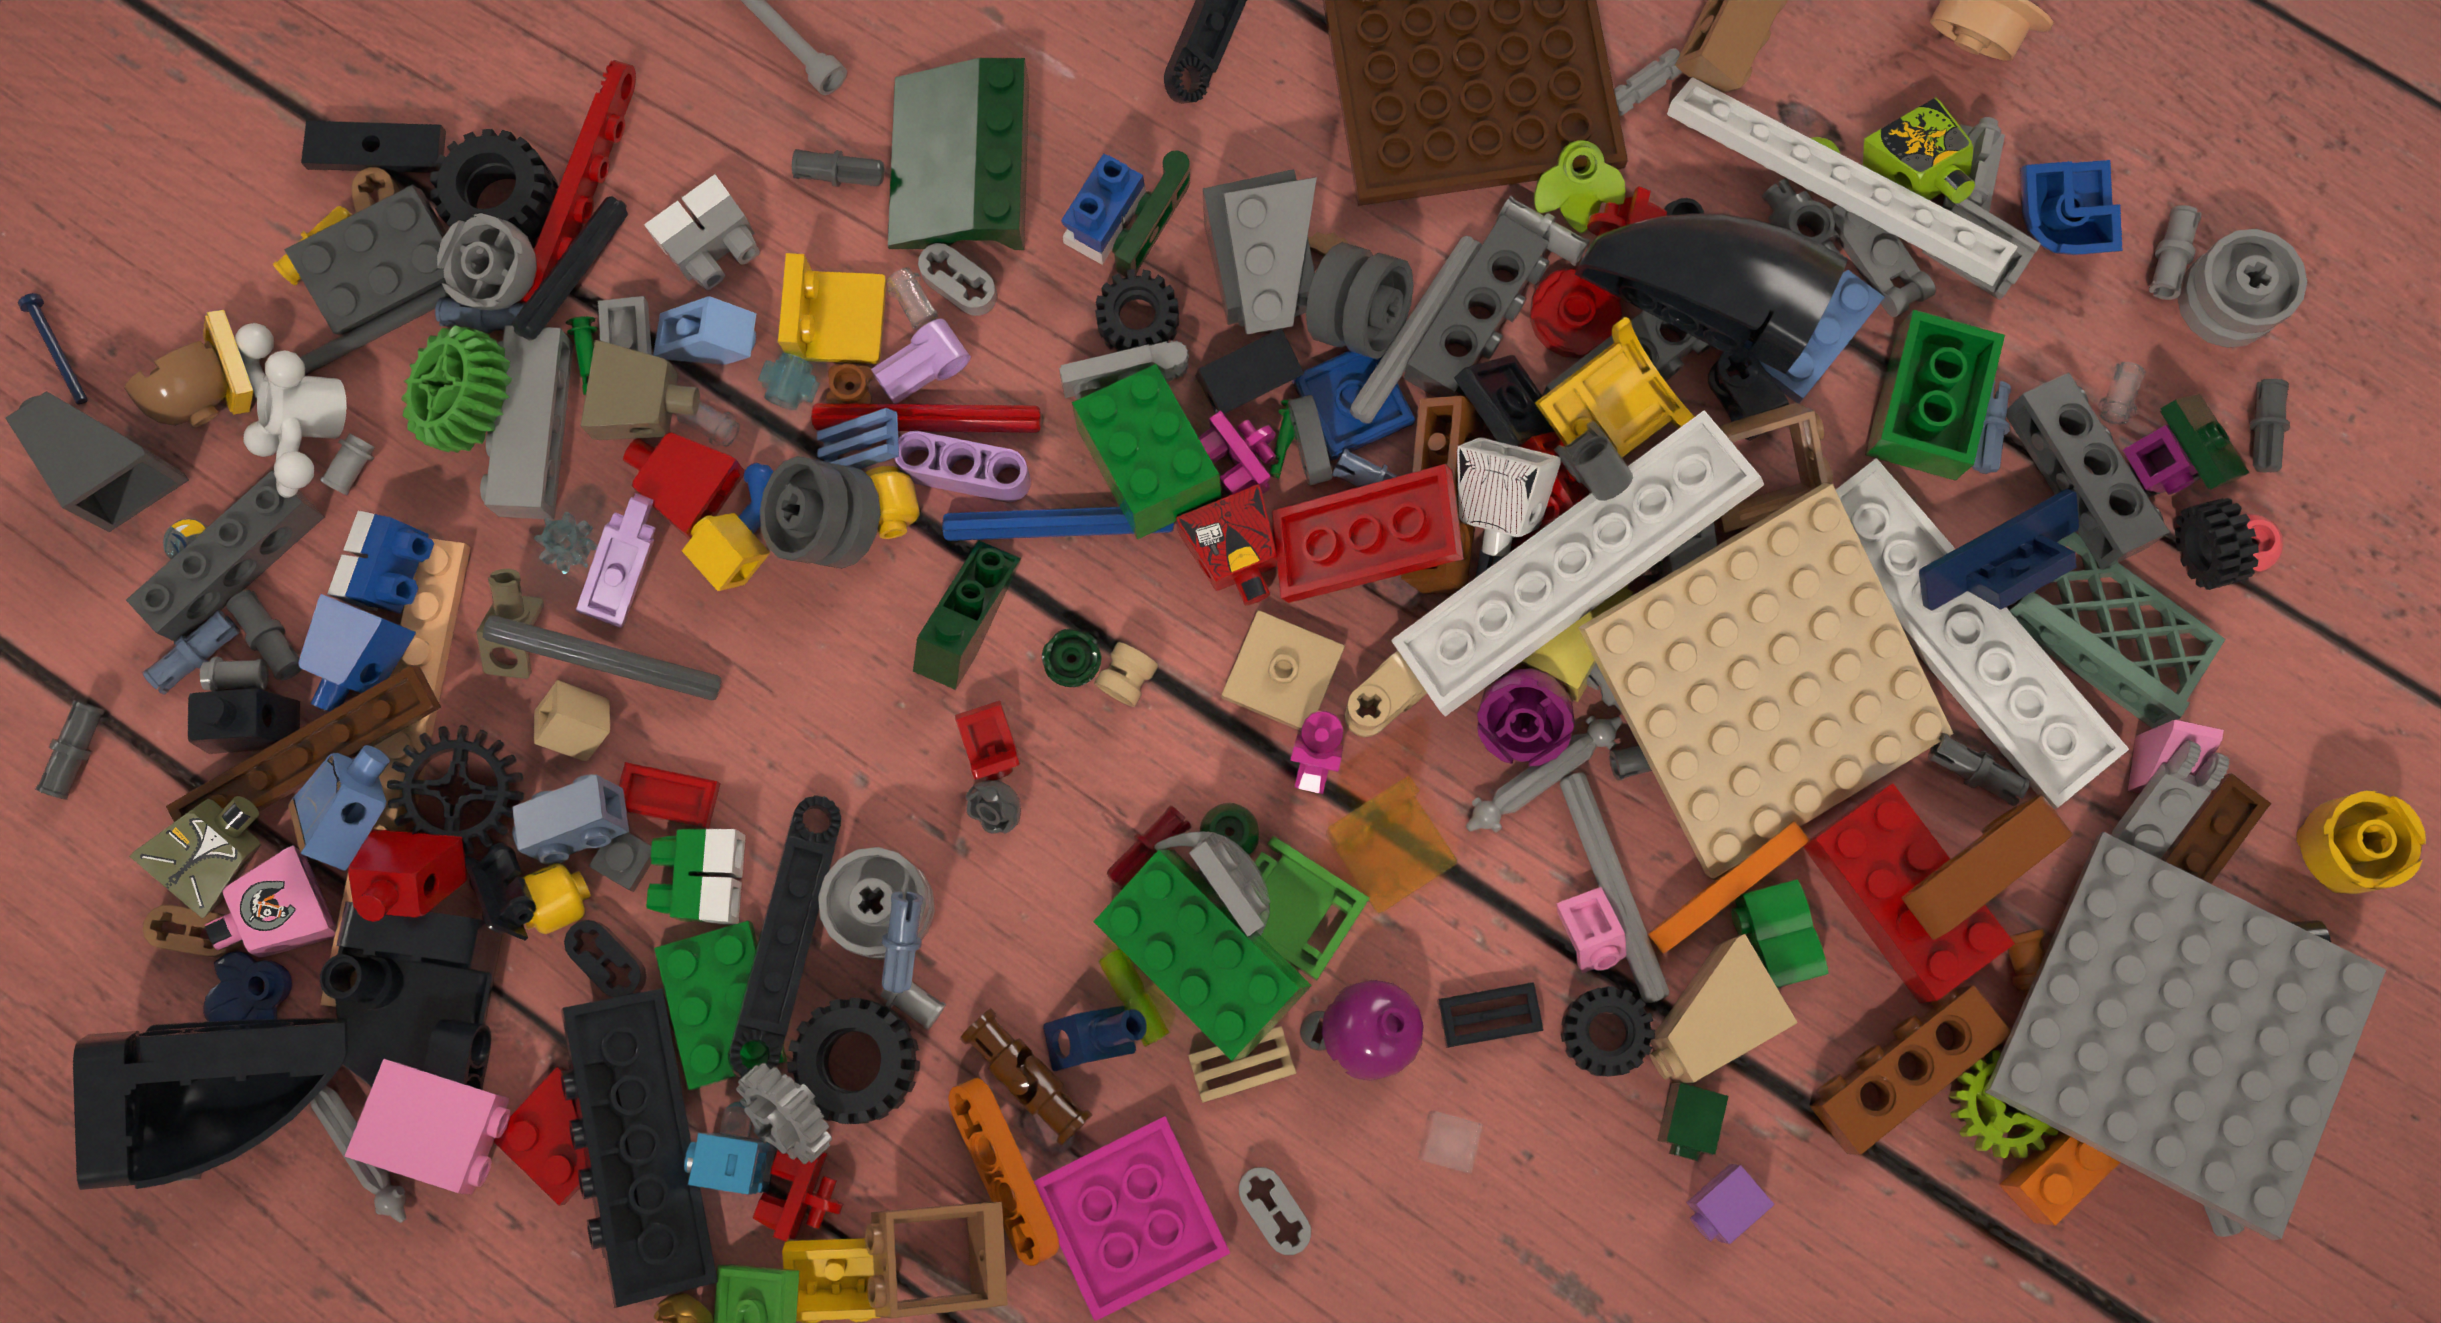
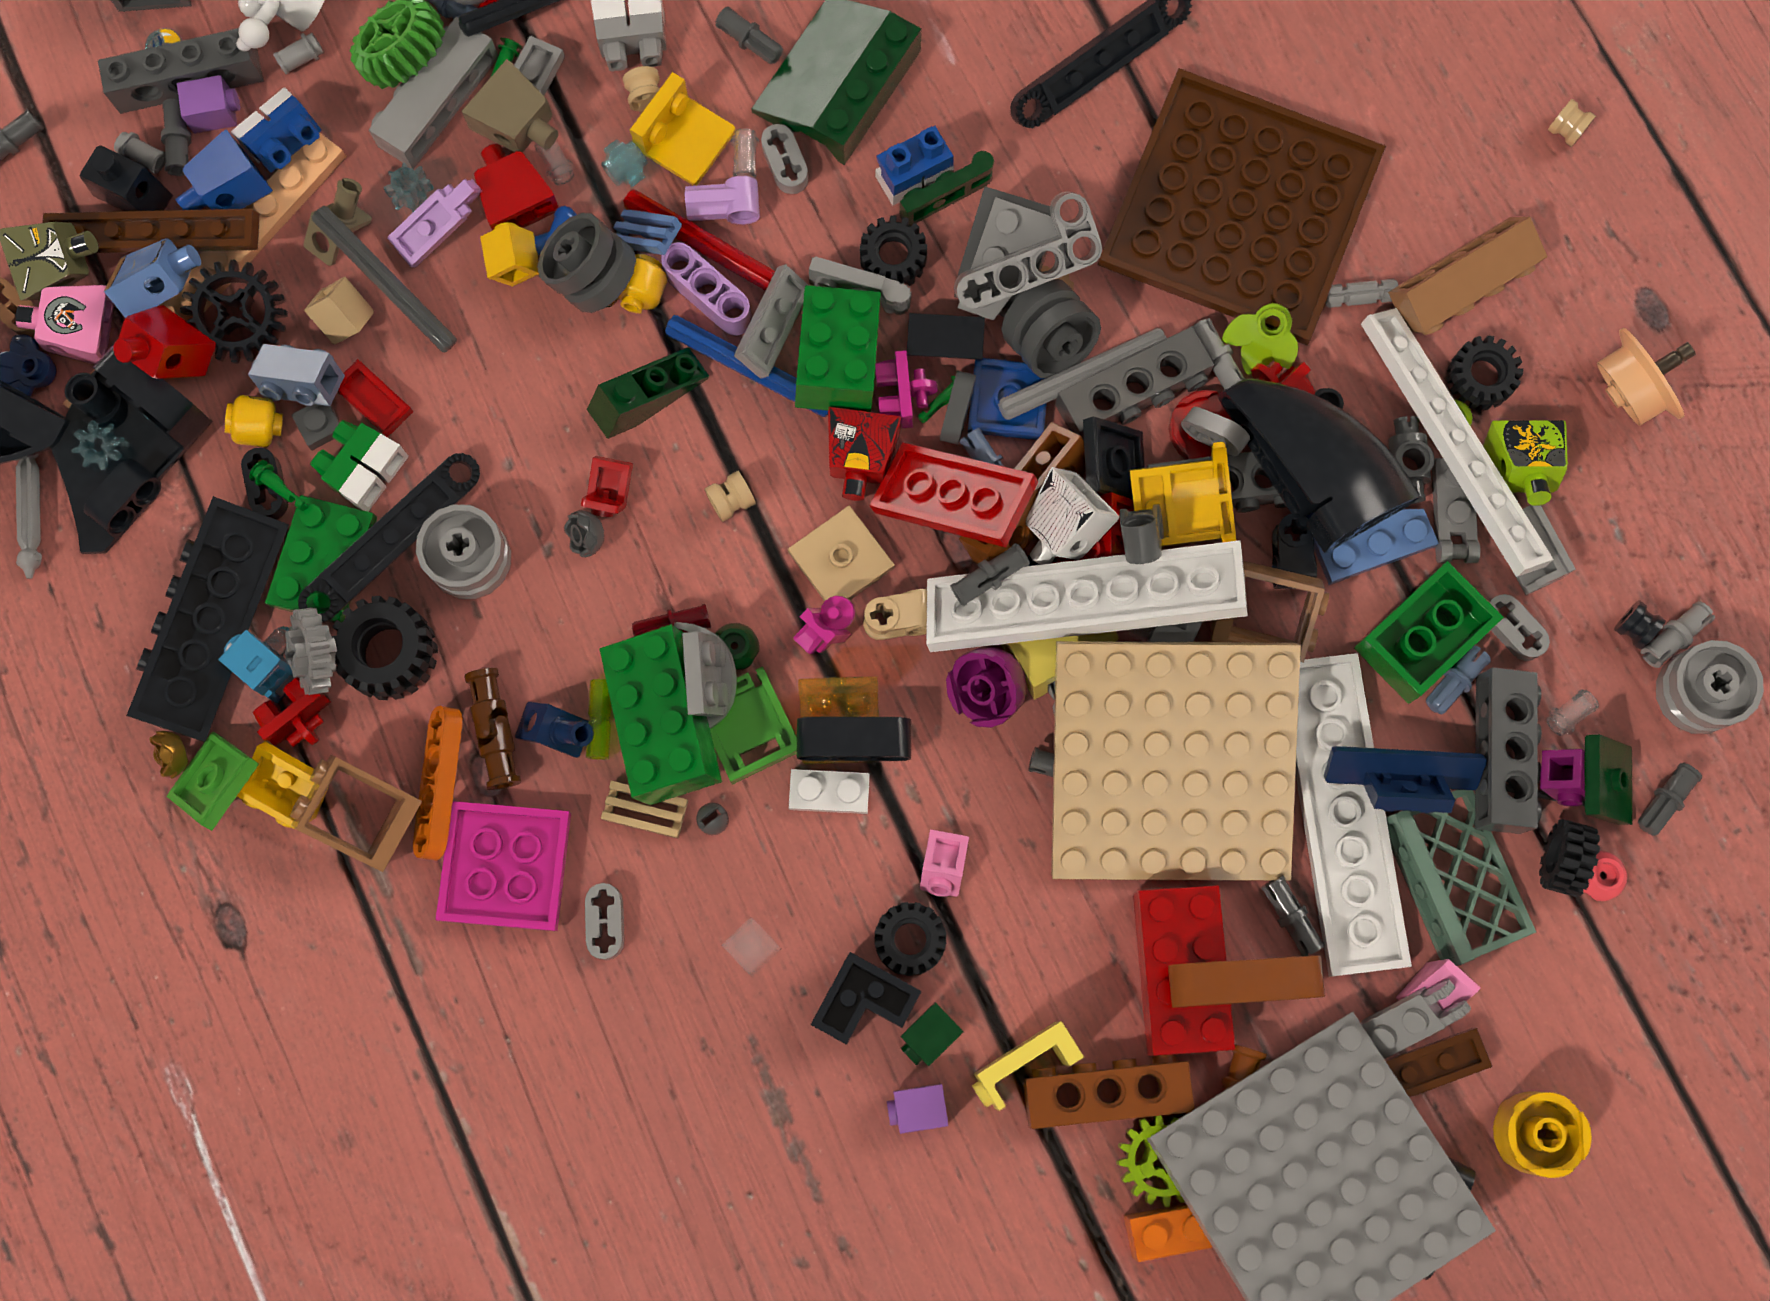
camera: 30 degrees right, 0 degrees up
(191, 652) = (121, 121): sand blue pin -> none
(280, 577) = (208, 104): none -> medium lavender brick
(405, 1033) = (87, 444): none -> clear light blue gear
(429, 1128) = (79, 524): bright pink panel -> none
(501, 892) = (221, 395): black hinge -> none
(541, 1140) = (147, 578): red wing -> none
(616, 951) = (264, 474): none -> green piece
(706, 332) = (590, 98): light blue slope -> none
(757, 289) = (643, 86): none -> tan wheel
(841, 375) = (667, 180): dark orange plate -> none
(901, 941) = (459, 583): sand blue axle -> none
(916, 1004) = (449, 632): light grey pin -> none
(1057, 461) = (772, 322): none -> light grey tile
(1068, 643) = (698, 452): dark green plate -> none
(1298, 240) = (1025, 259): none -> light grey beam
(1373, 1029) = (746, 838): magenta cylinder -> none
(1421, 856) = (853, 739): none -> black beam
(1424, 926) = (829, 791): none -> white plate
(1449, 1022) = (842, 864): black tile -> none
(1460, 597) = (989, 574): none -> dark grey pin
(1539, 778) = (974, 737): light grey wheel -> none
(1590, 1119) = (860, 988): none -> black brick
(1594, 310) = (1213, 428): none -> light grey beam
(1615, 886) = (979, 843): light grey axle -> none
(1720, 1014) = (993, 973): tan slope -> none
(1727, 888) = (1059, 890): orange beam -> none
(1781, 932) = (1073, 946): green brick -> none
(1802, 1084) = (1051, 1036): none -> light yellow panel
(1828, 71) = (1497, 356): none -> black tyre
(1985, 161) = (1577, 483): light grey hinge -> none
(2017, 333) = (1519, 619): none -> light grey beam
(2071, 207) = (1616, 556): blue brick -> none
(2134, 265) = (1640, 625): none -> black wheel

